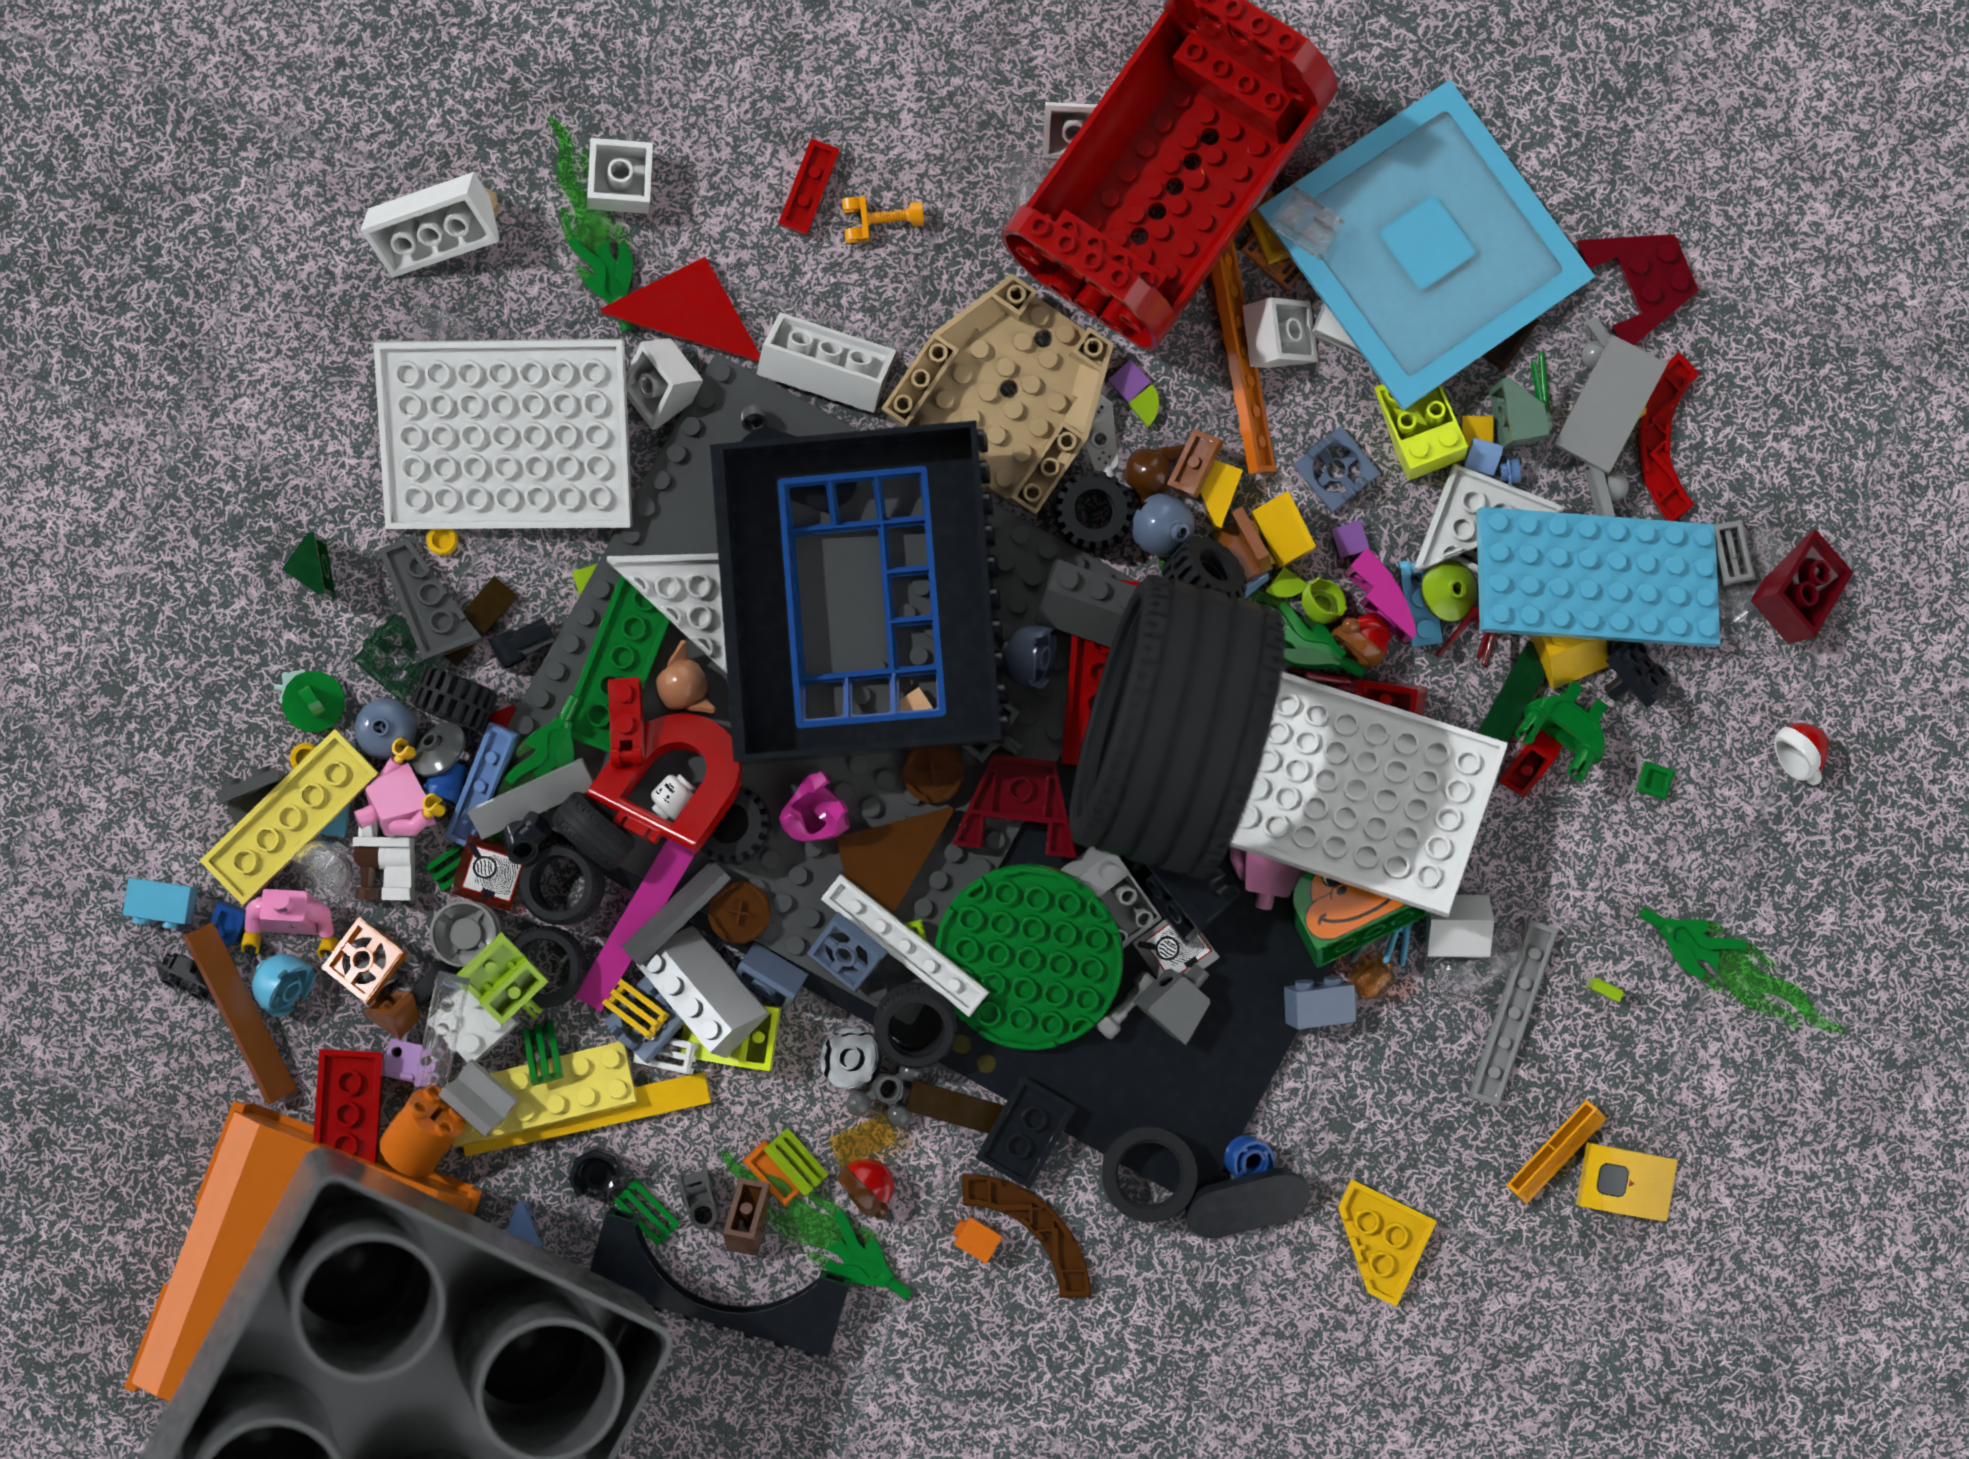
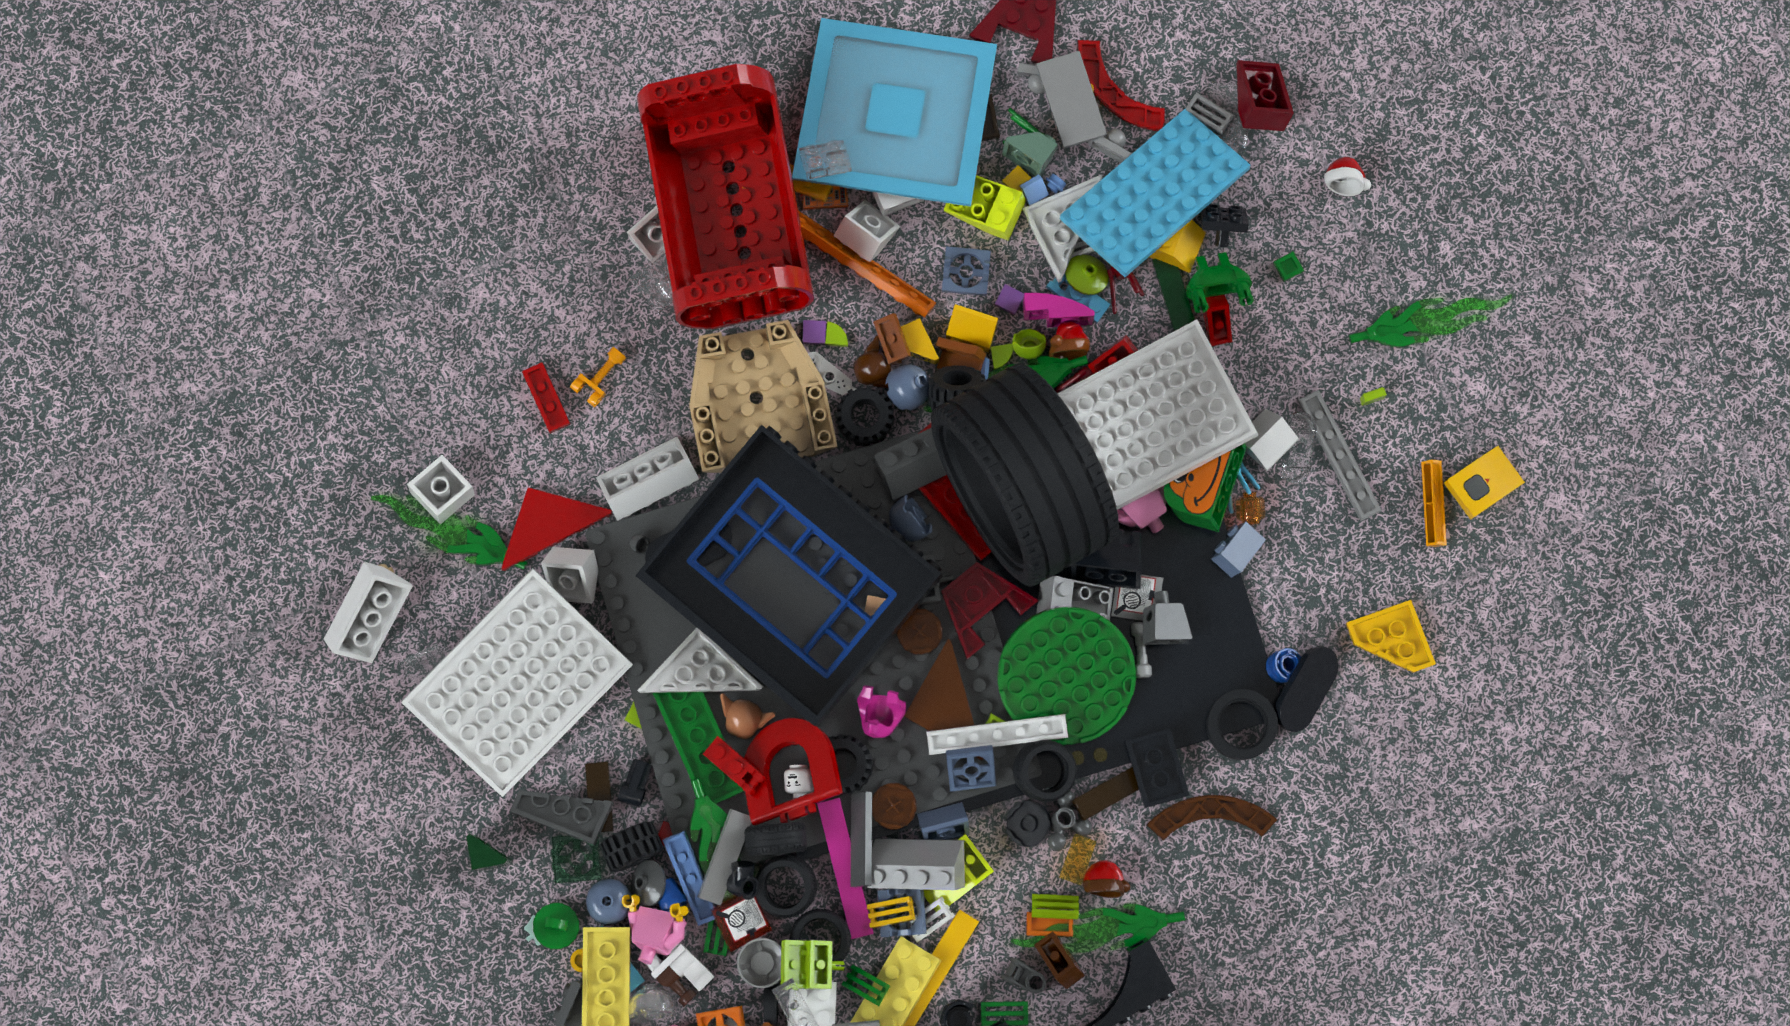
camera: 45 degrees left, 5 degrees down
(442, 541) = (538, 773): yellow tile -> none
(976, 1238) = (1188, 849): orange brick -> none

